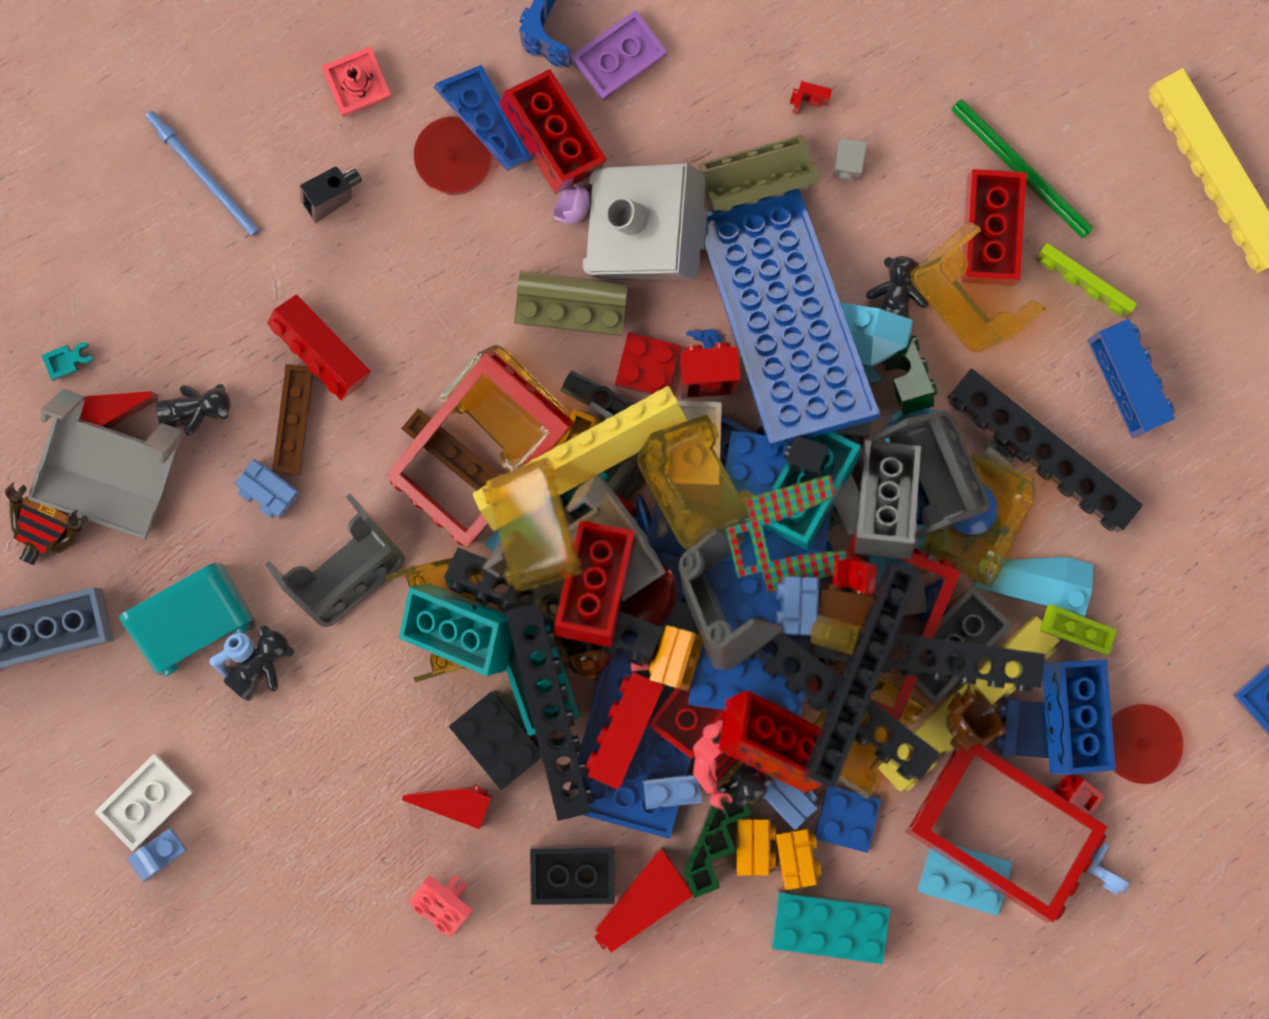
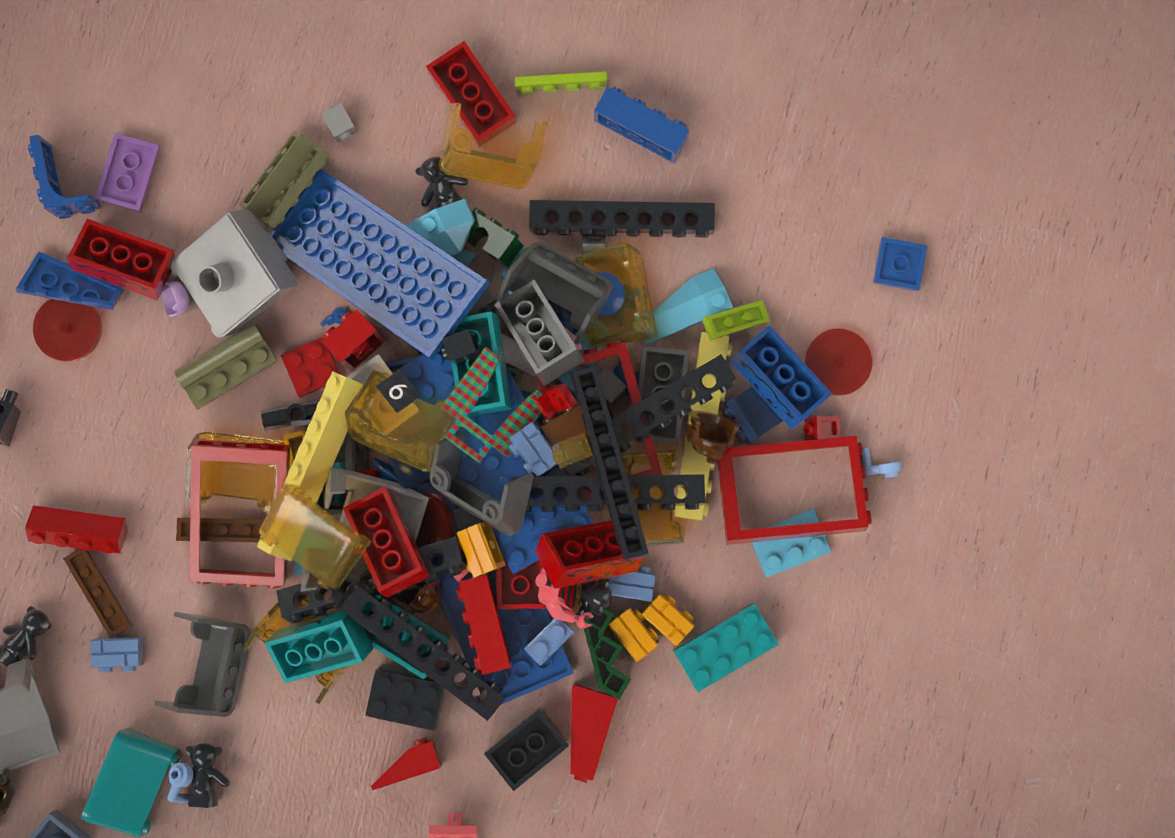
camera: 40 degrees left, 0 degrees up
(714, 451) = (398, 391): none -> black sticker
(812, 93) = (280, 97): red bracket -> none
(847, 819) = (682, 566): blue plate -> none
(1018, 164) = (456, 38): green axle -> none

